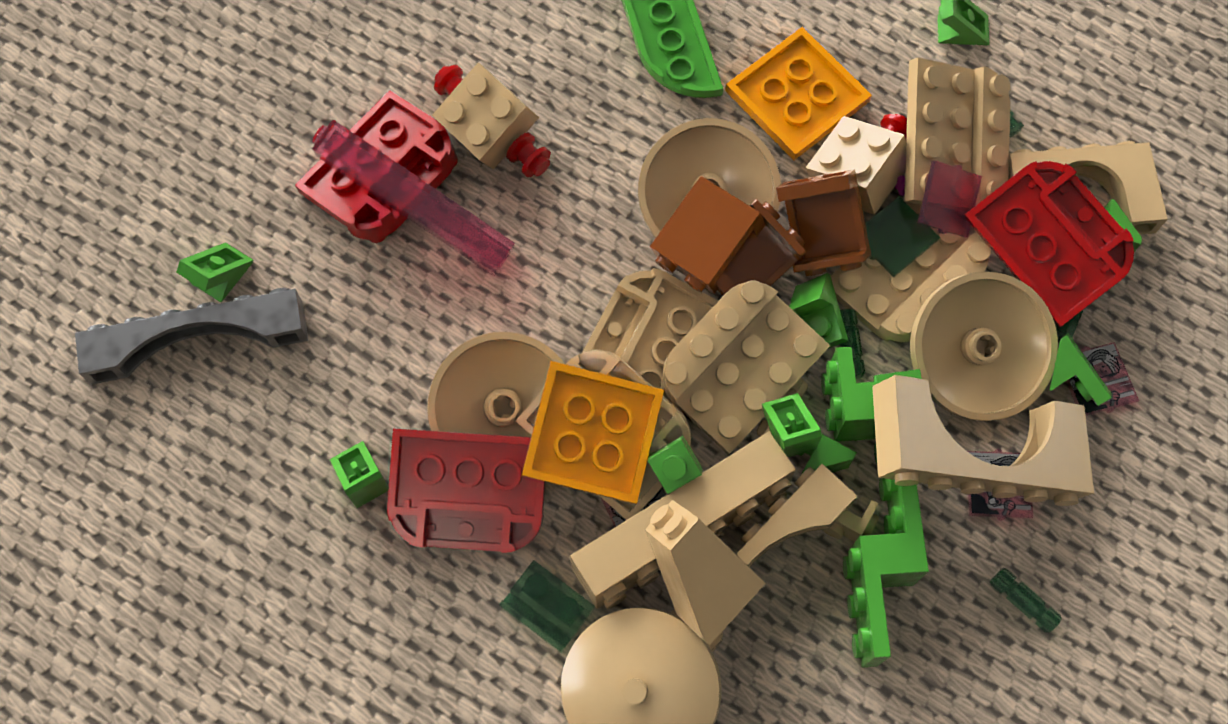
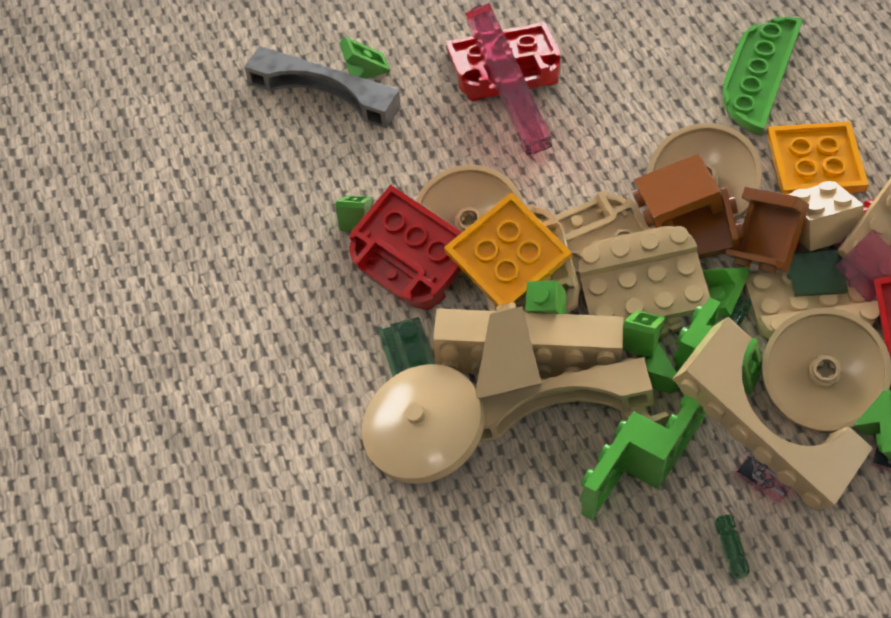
camera: 40 degrees right, 15 degrees down
(489, 119) = (592, 67): tan brick -> none

